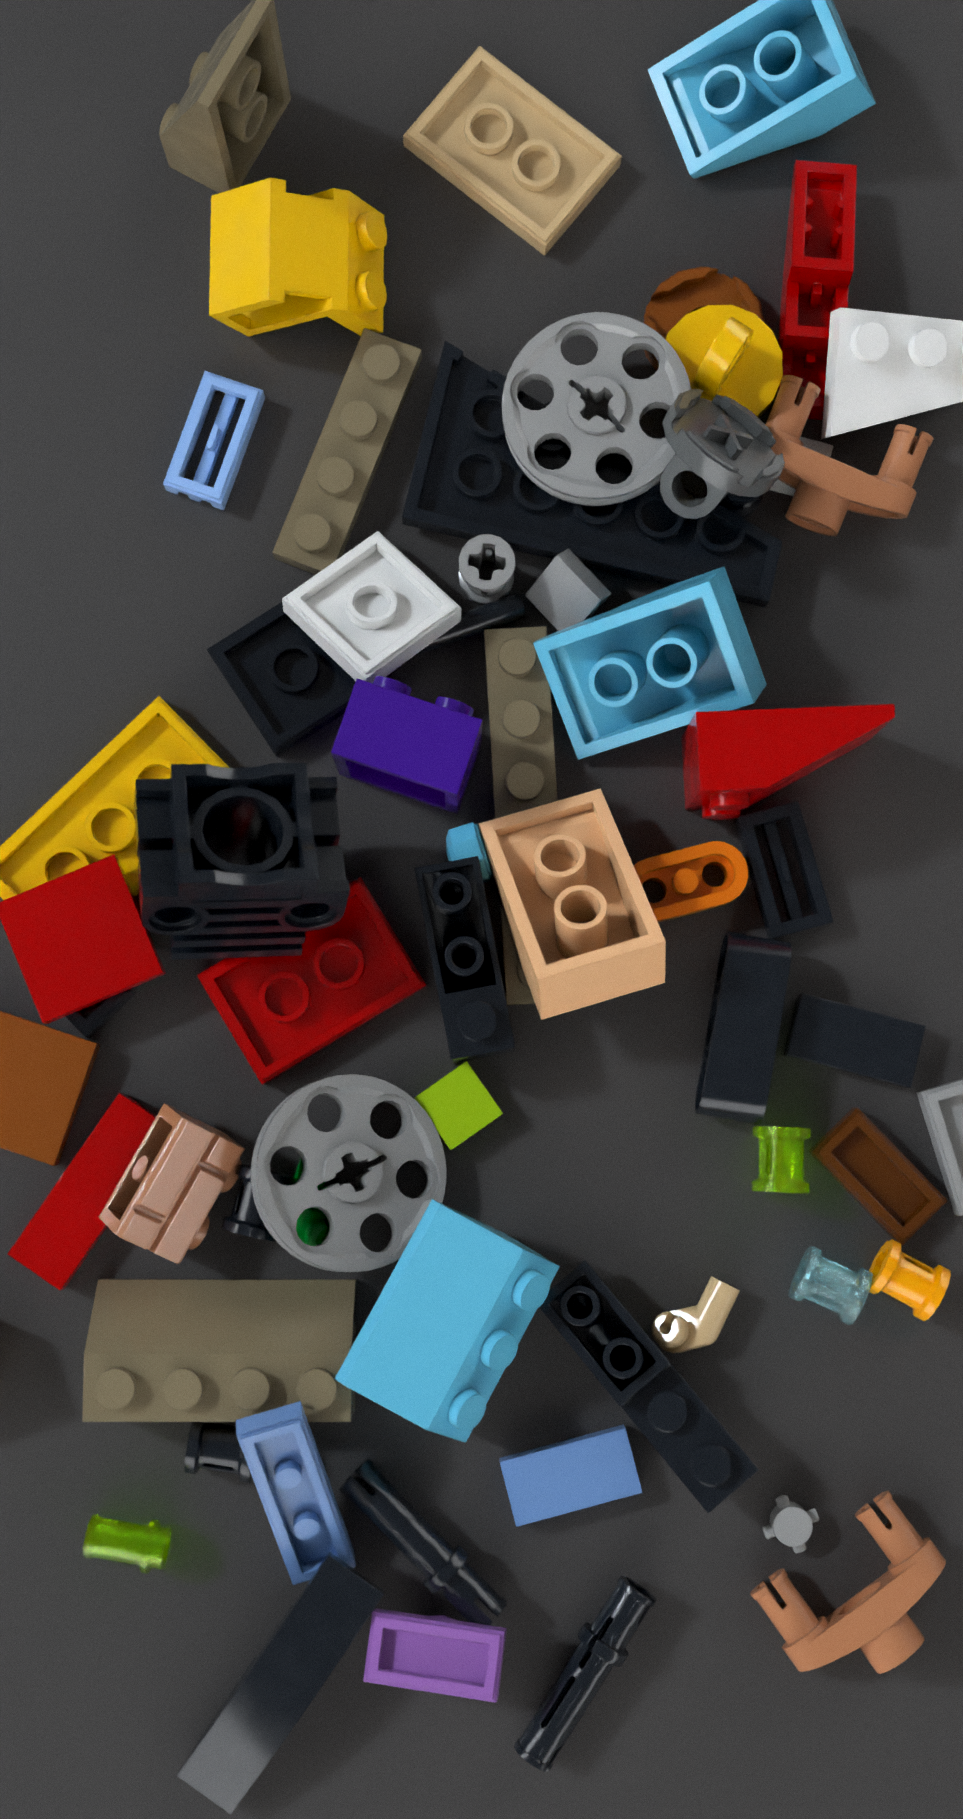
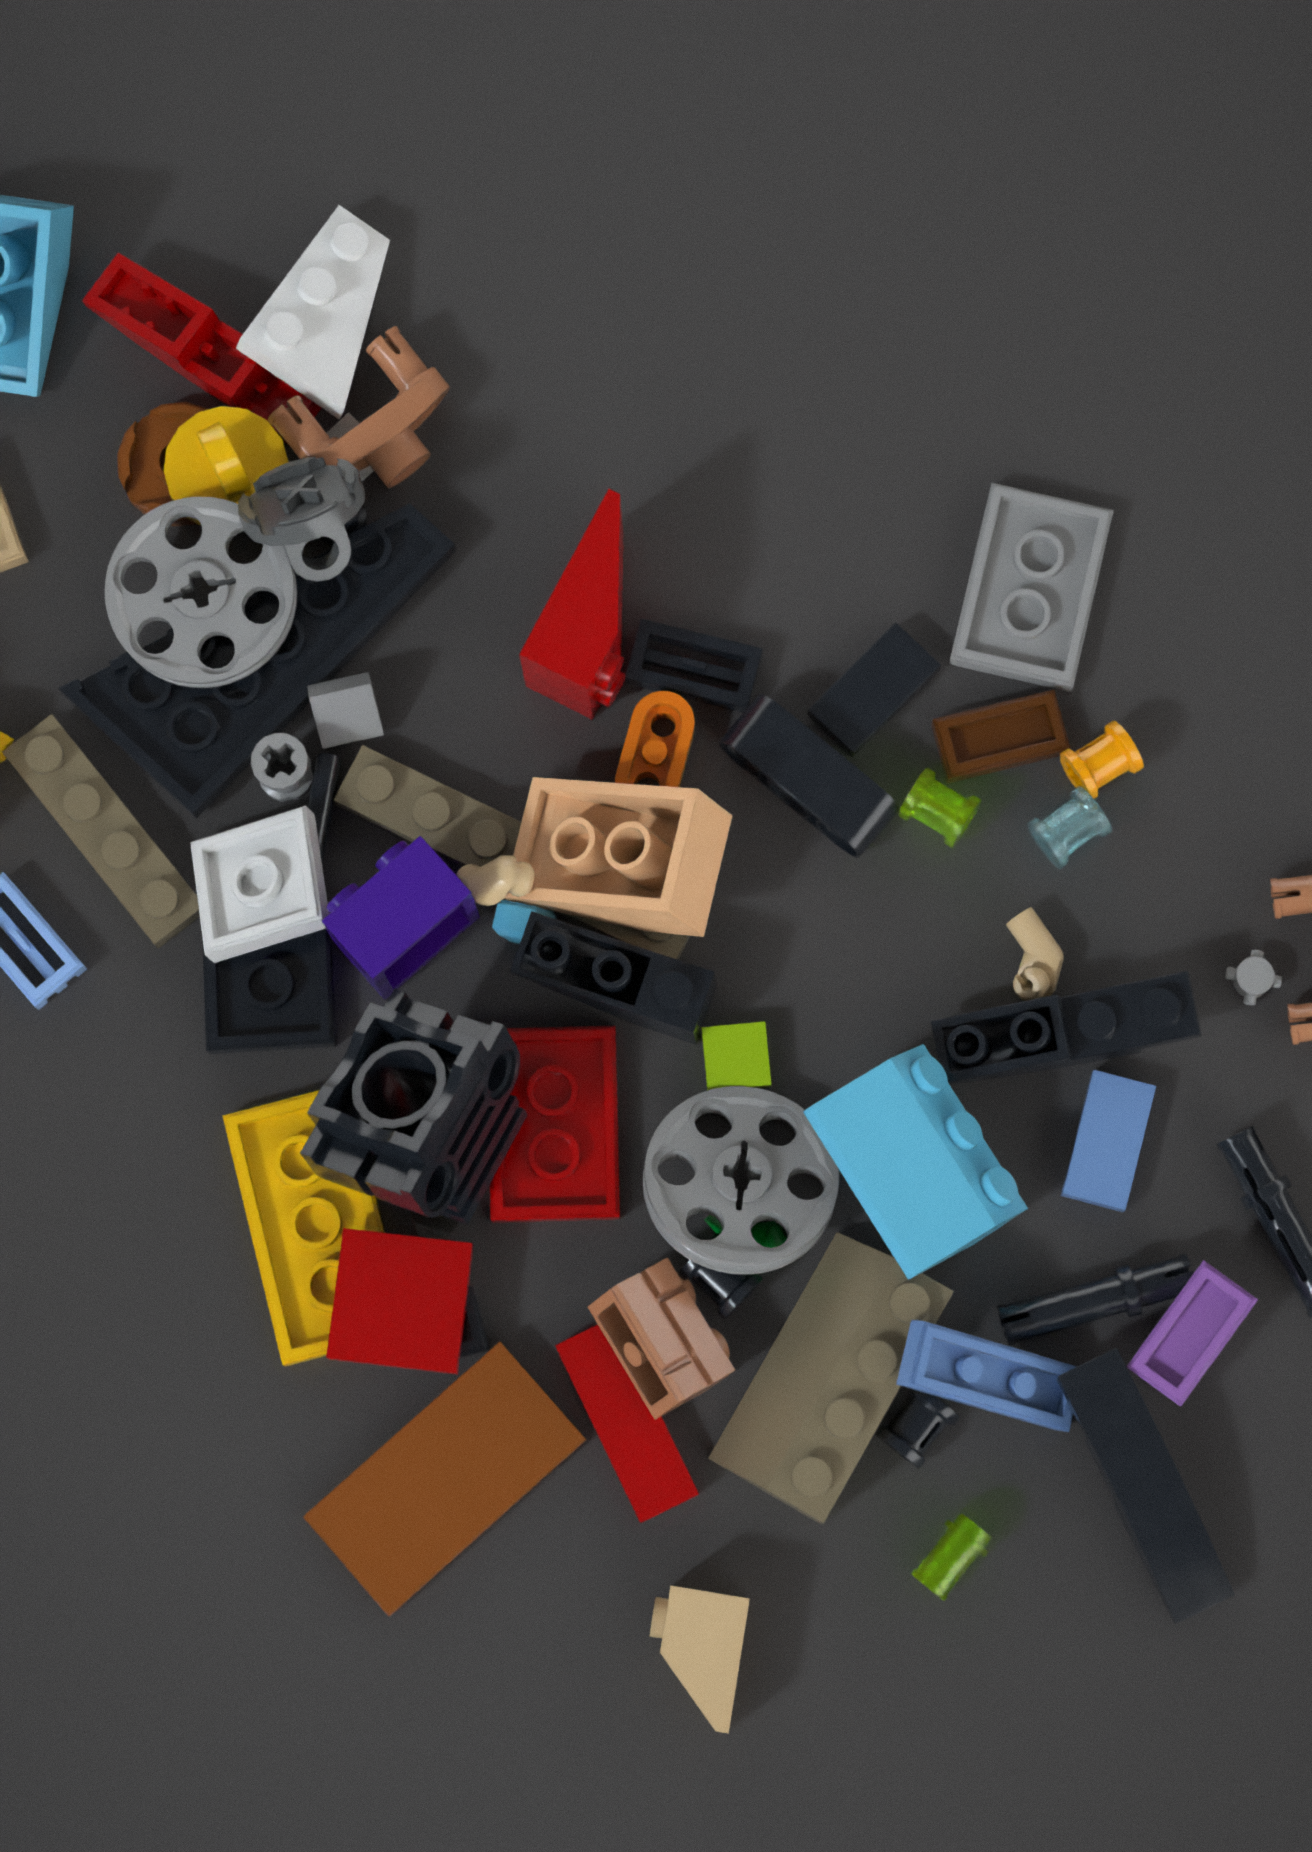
camera: 50 degrees left, 5 degrees down
(484, 807) = (497, 879): none -> tan arm
(652, 664) = (451, 673): medium azure slope -> none

